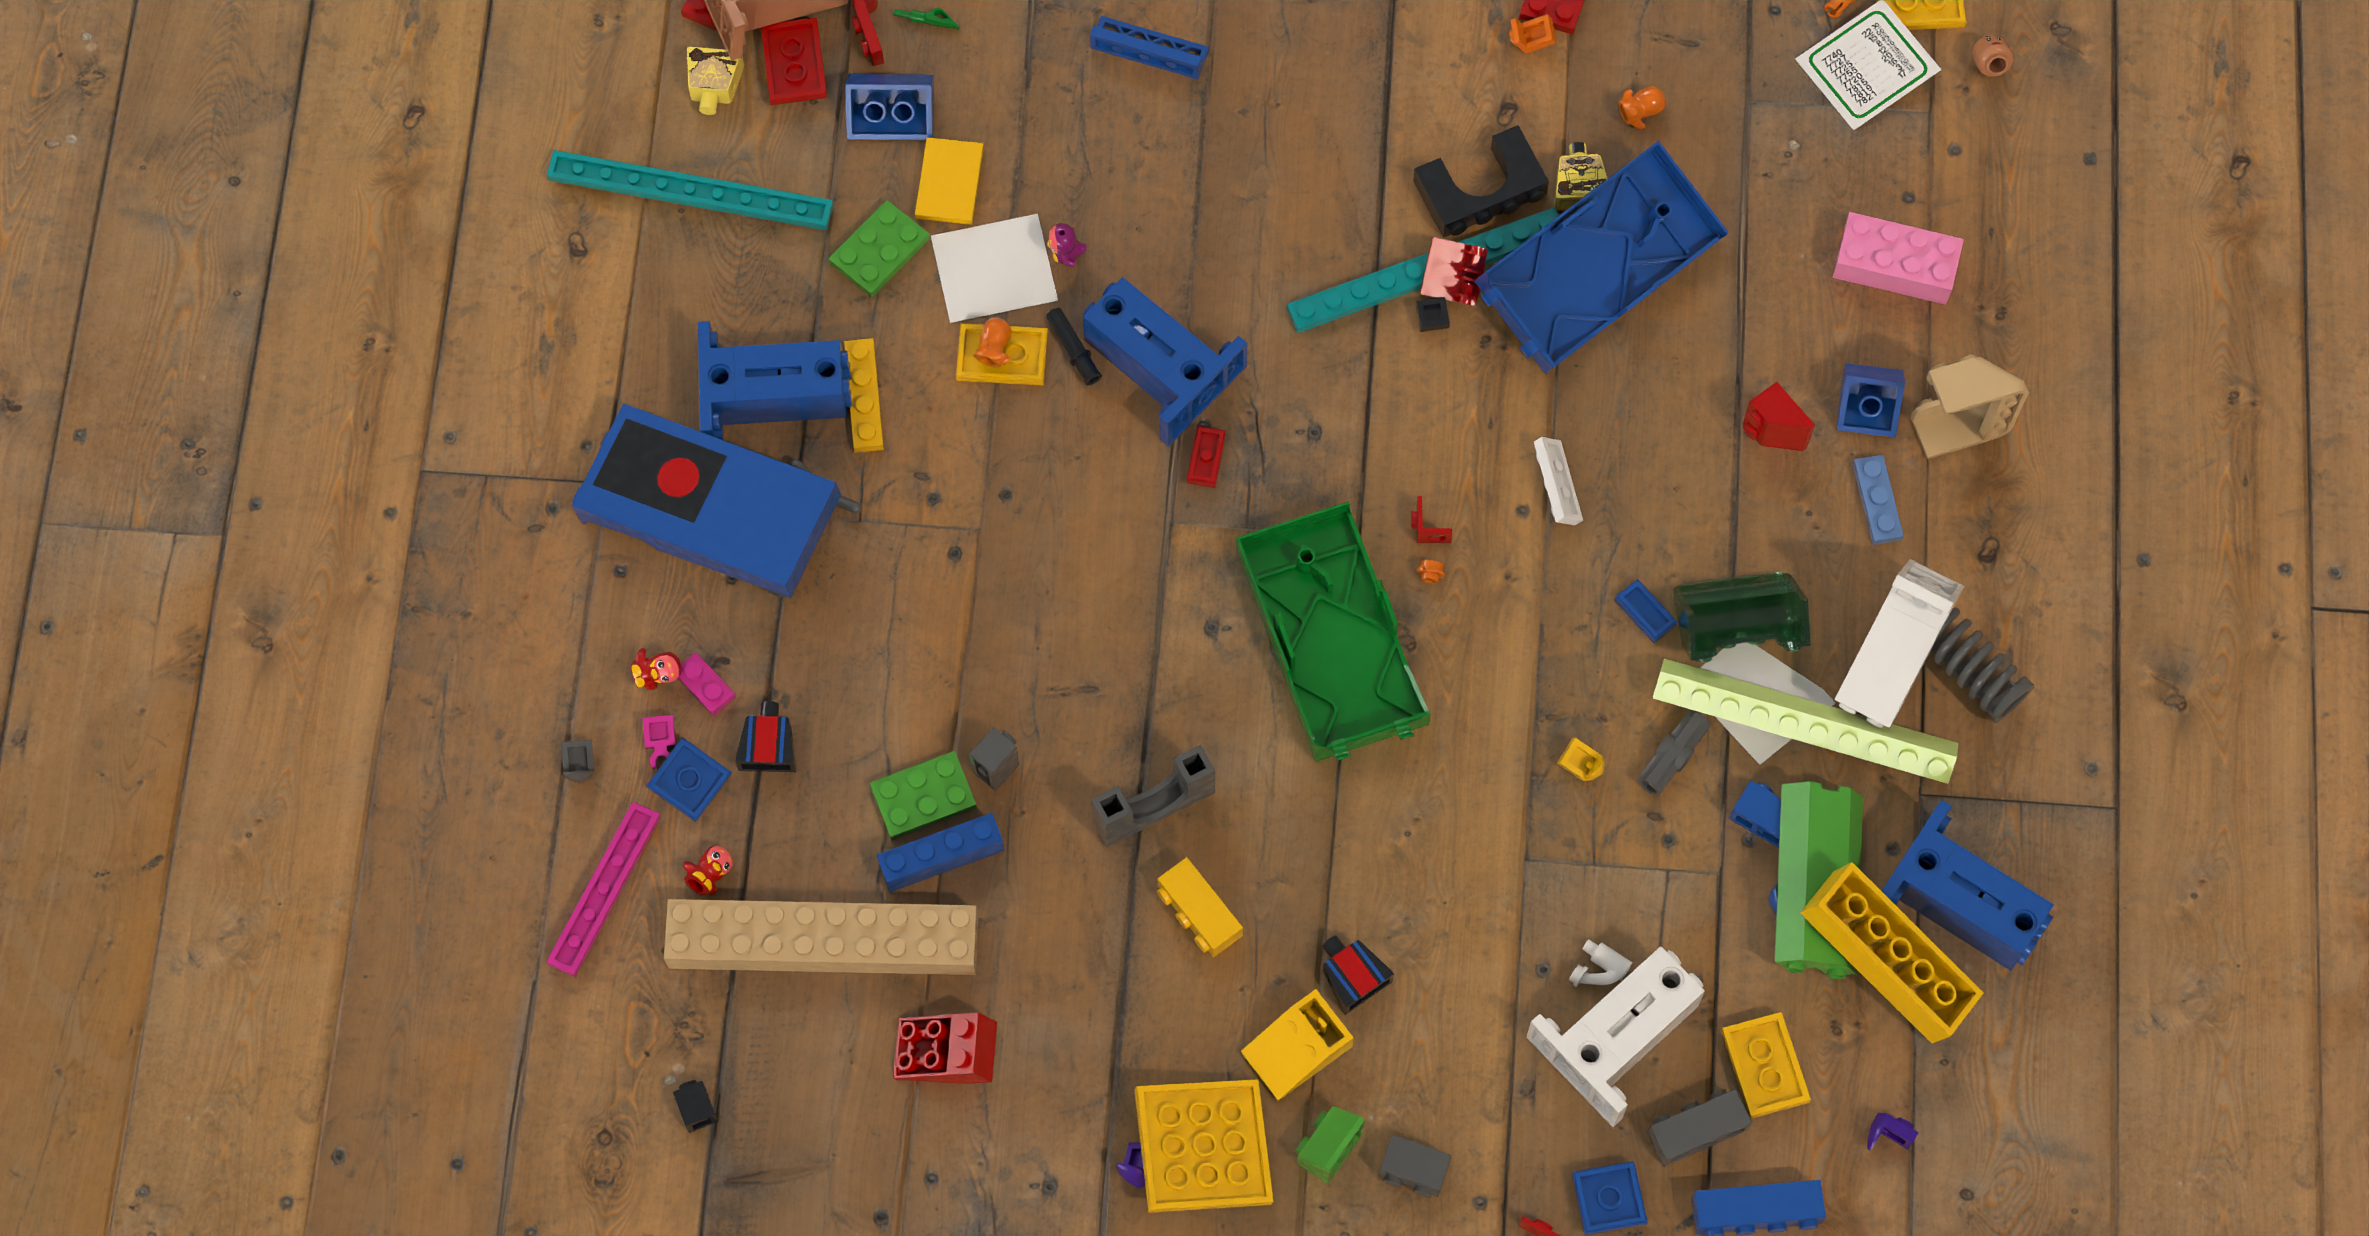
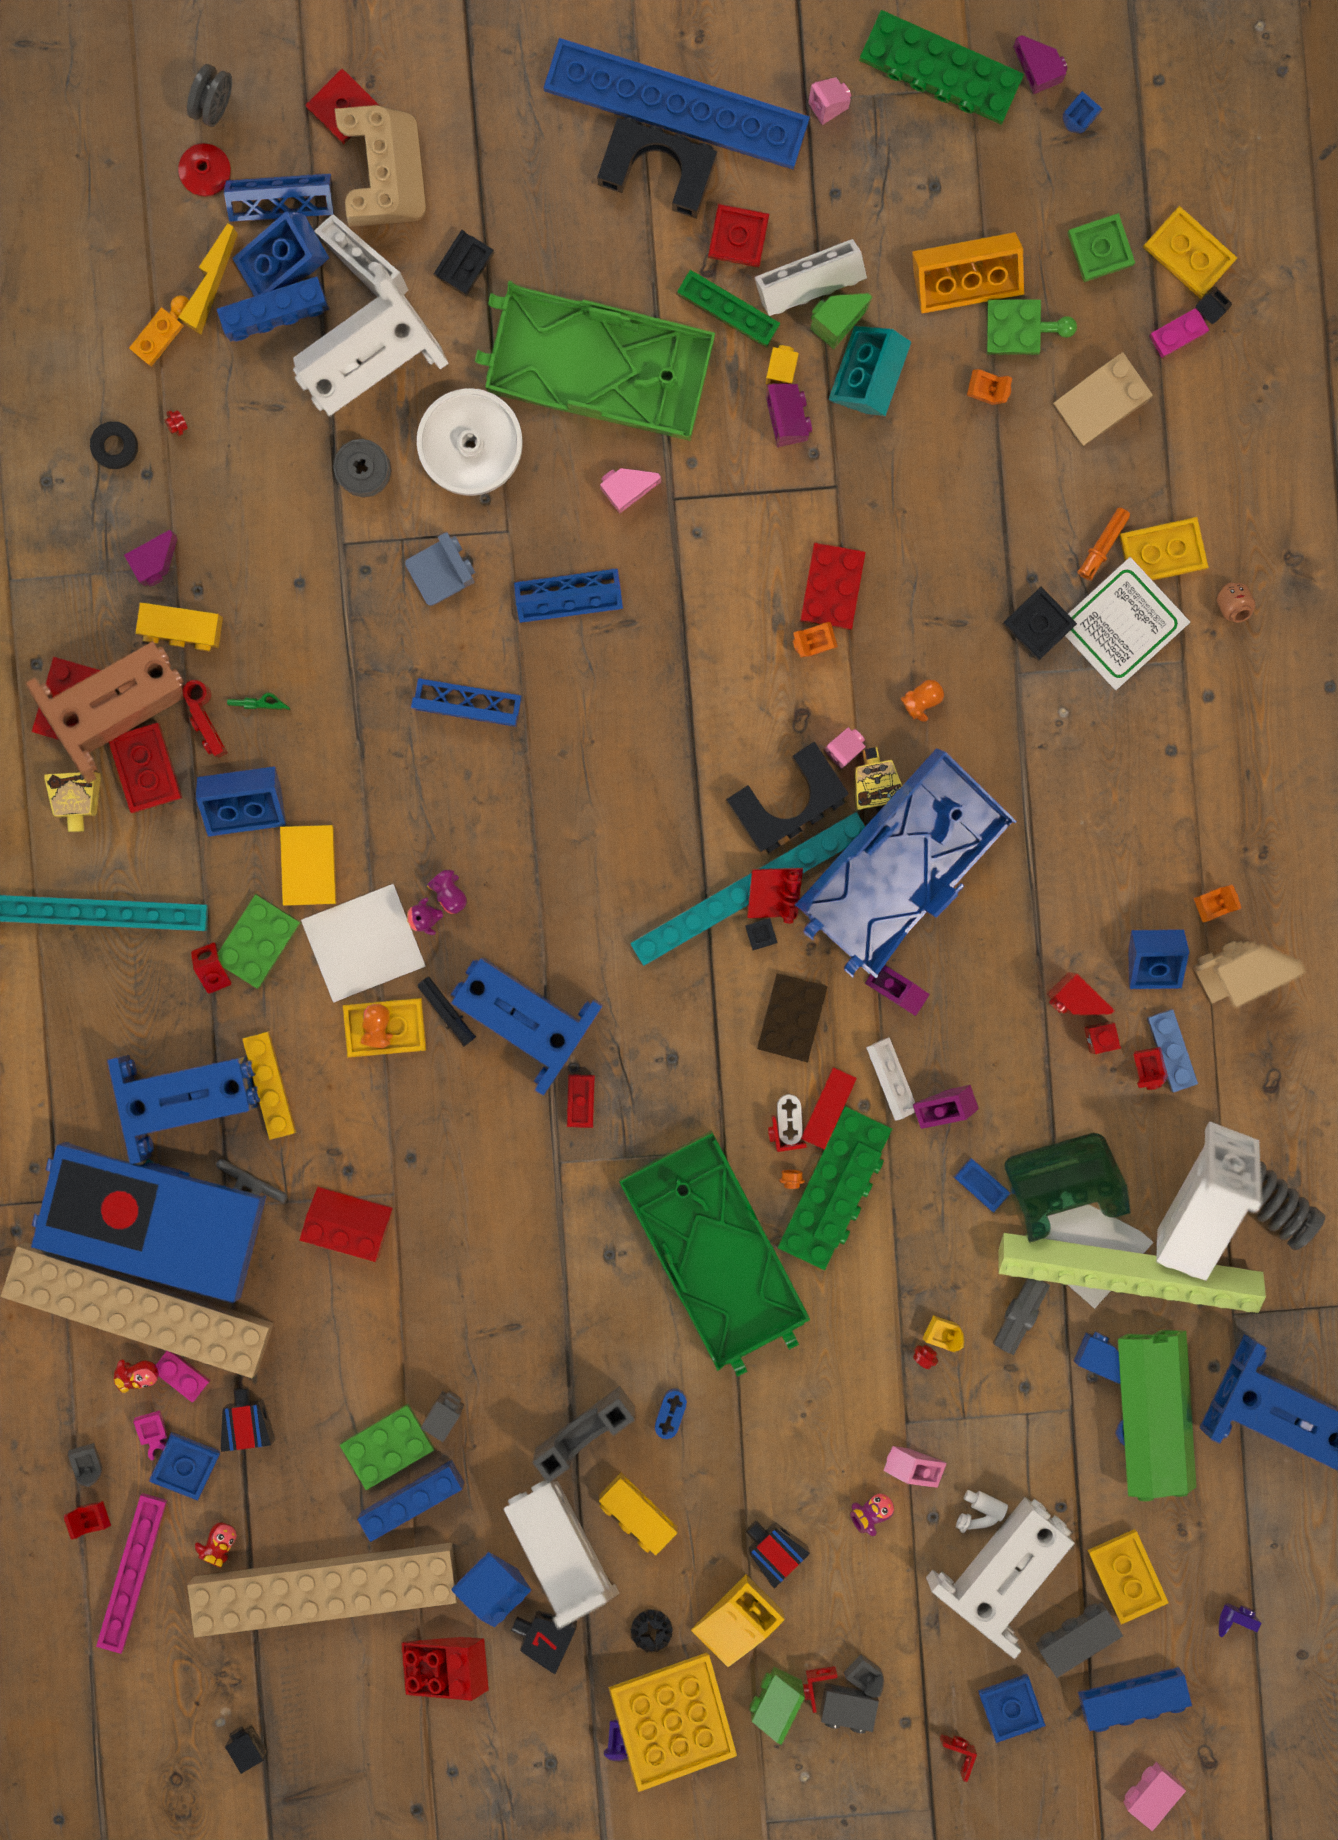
camera: 10 degrees left, 20 degrees up
(567, 820) = (86, 1519): none -> red bracket
(672, 601) = (137, 1310): none -> tan brick
(824, 269) = (210, 970): none -> red bracket
(921, 549) = (346, 1224): none -> red slope
(1016, 957) = (492, 1589): none -> blue slope
(1069, 1031) = (543, 1639): none -> black torso
(1096, 223) = (448, 894): none -> magenta animal
(1106, 927) = (559, 1551): none -> white brick
(1206, 1055) = (658, 1621): none -> black gear
(1260, 809) = (664, 1412): none -> blue beam
(1380, 1122) = (814, 1676): none -> red bracket
(1439, 1131) = (866, 1676): none -> dark grey plate
(1444, 508) = (796, 1119): none -> white beam
(1454, 406) = (792, 1017): none -> dark brown plate
(1475, 944) = (874, 1511): none -> animal
(1478, 591) = (836, 1189): none -> green plate
(1483, 504) = (828, 1108): none -> red tile
(1529, 902) = (914, 1467): none -> bright pink slope
(1549, 138) = (845, 747): none -> bright pink slope
(1557, 782) = (925, 1356): none -> red plate
(1577, 389) = (898, 990): none -> magenta slope
(1615, 516) = (946, 1107): none -> magenta slope
(1777, 51) = (1039, 623): none -> black plate
(1799, 469) = (1102, 1037): none -> red brick
(1851, 509) = (1150, 1068): none -> red bracket
(1892, 953) = (1226, 1480): yellow brick -> none
(1898, 258) = (1169, 819): bright pink brick -> none
(1943, 349) = (1217, 902): none -> orange bracket

